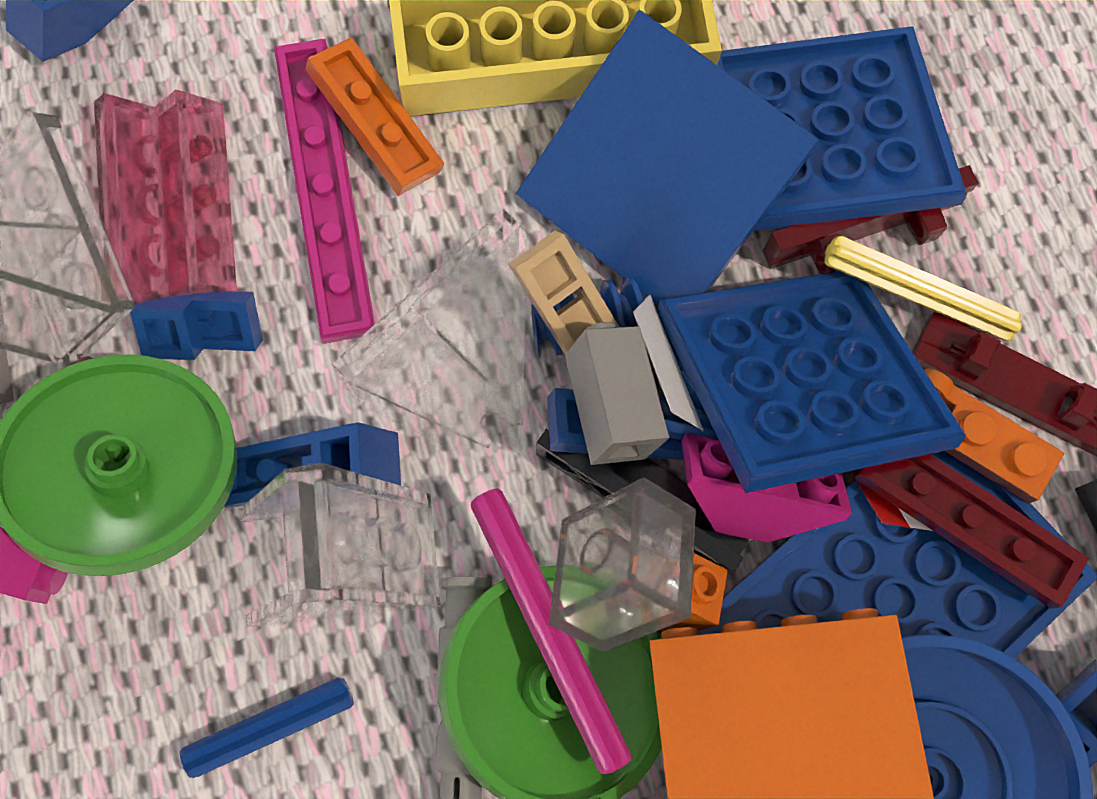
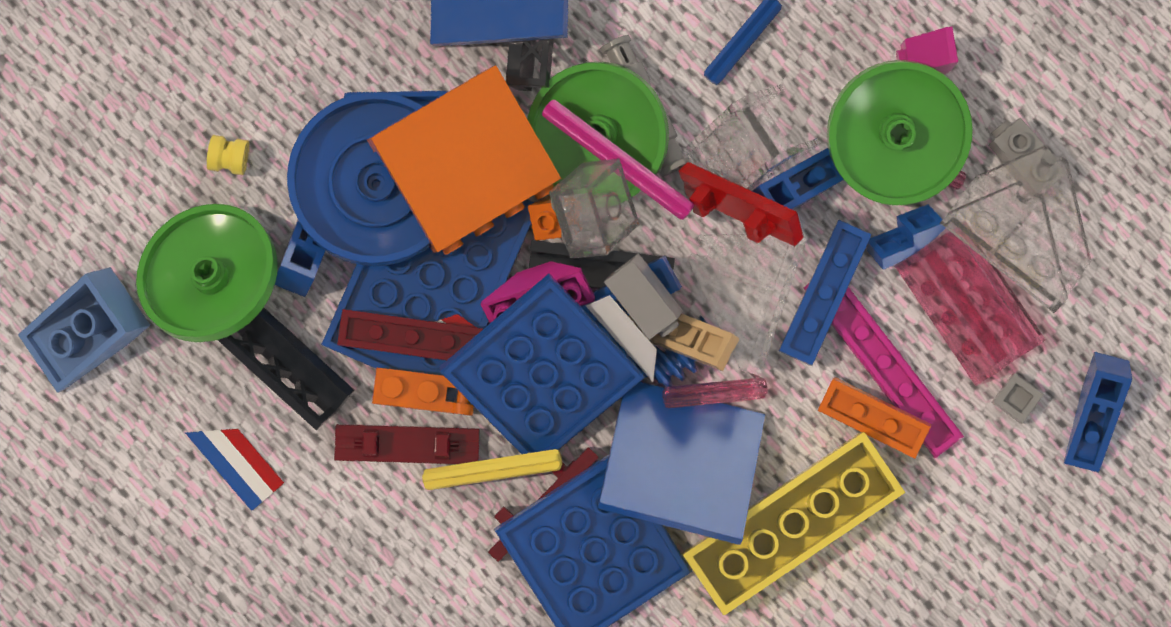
camera: 160 degrees right, 10 degrees up
(177, 57) = (1017, 398): none -> light grey plate
(347, 300) = (825, 292): none -> blue plate
(379, 431) = (757, 212): none -> red hinge
(594, 251) = (715, 392): none -> clear pink axle

